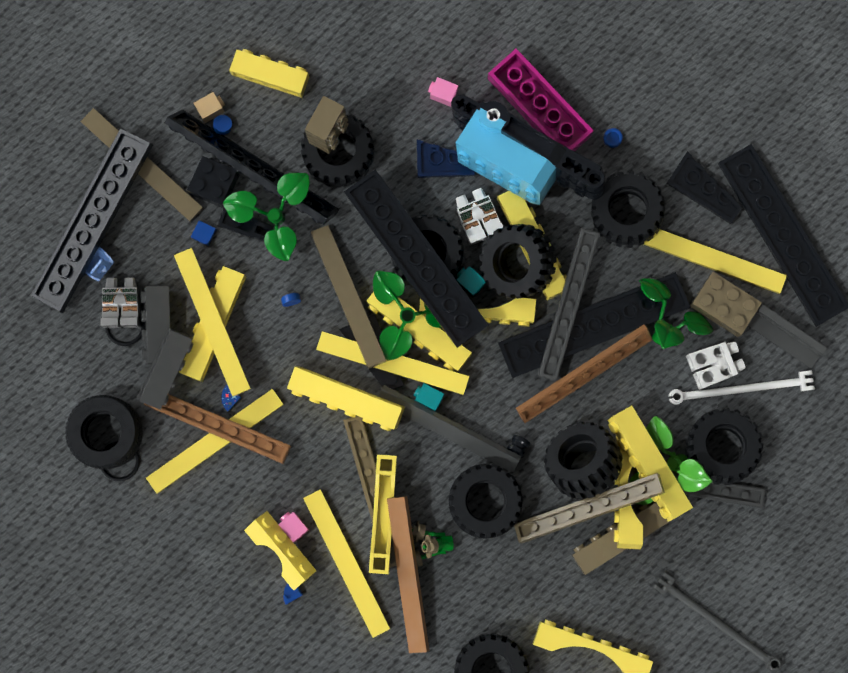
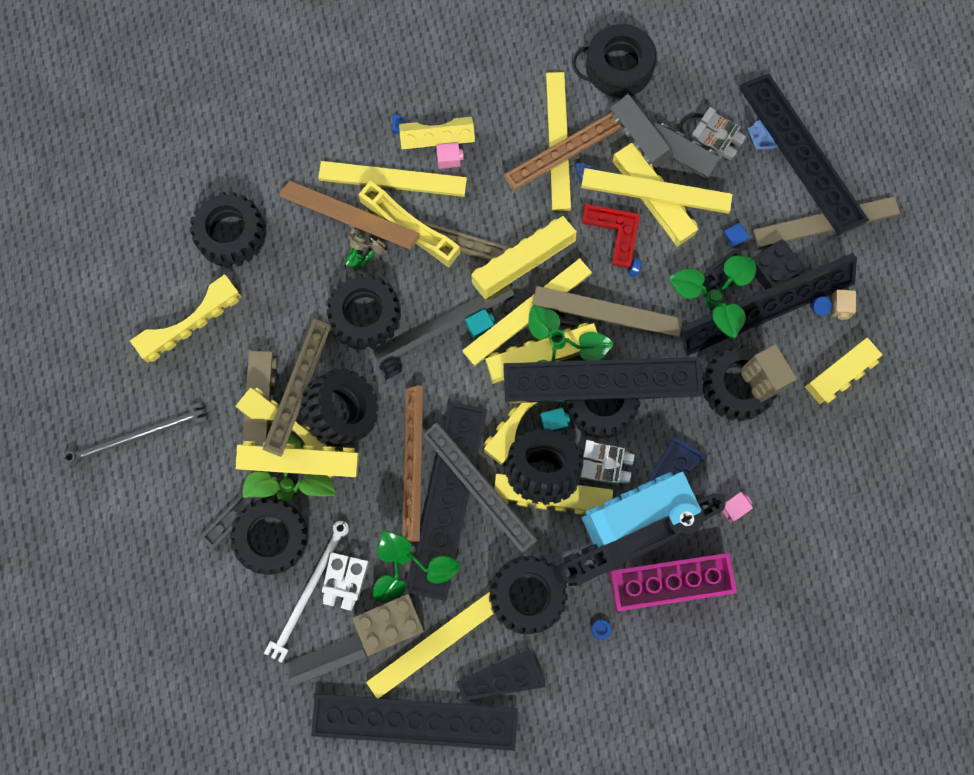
camera: 115 degrees right, 5 degrees down
(257, 329) = (622, 221): none -> red plate

